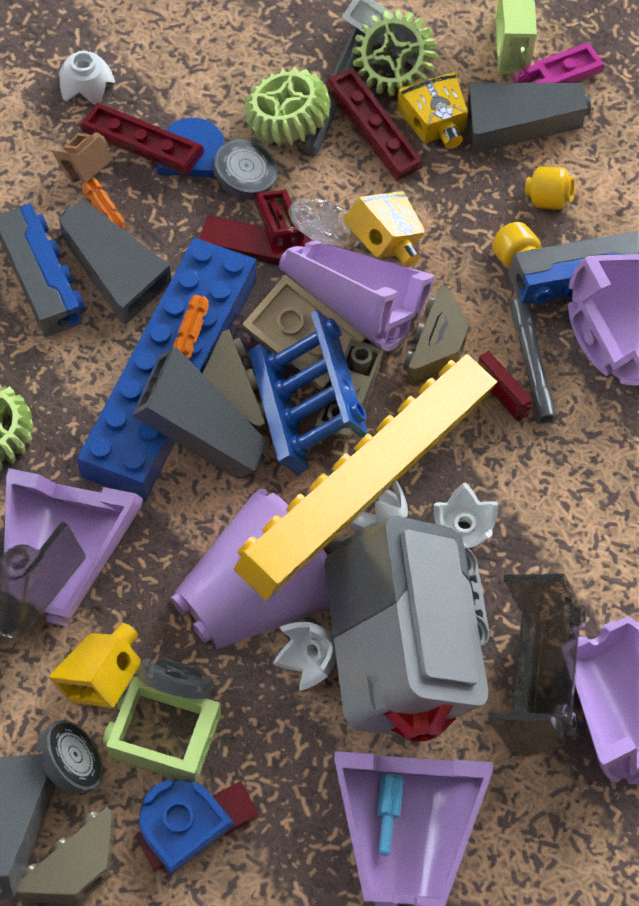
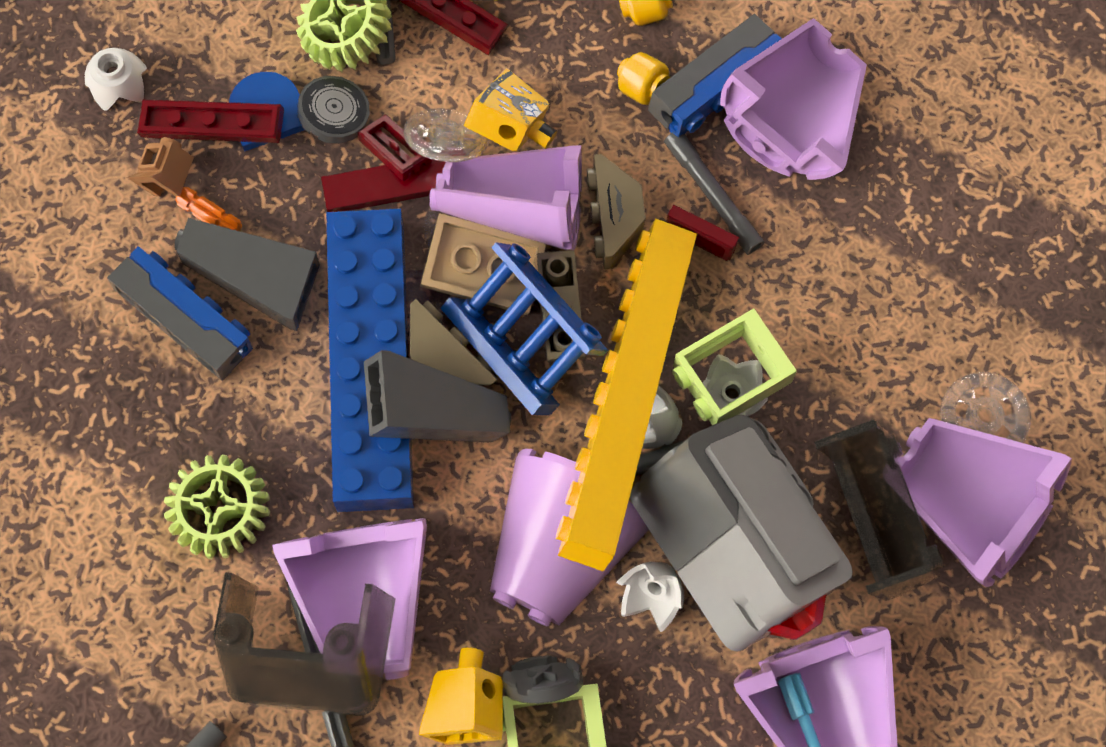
camera: 25 degrees left, 10 degrees up
(191, 324) = (377, 313): orange axle -> none
(470, 466) = (762, 345): none -> yellowish green window

